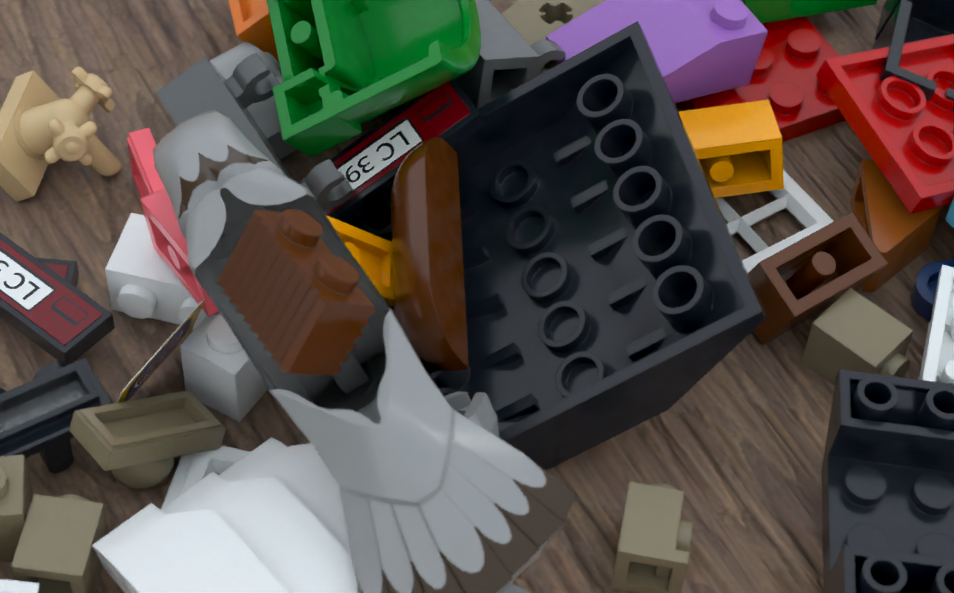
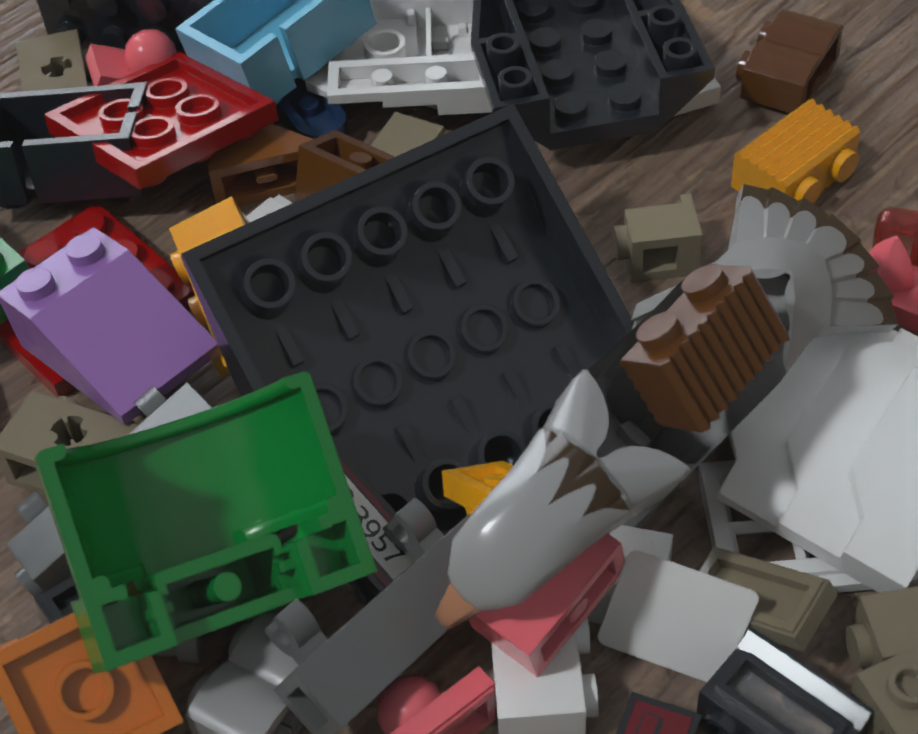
camera: 100 degrees left, 0 degrees up
(430, 255) = (451, 428): reddish brown brick -> none

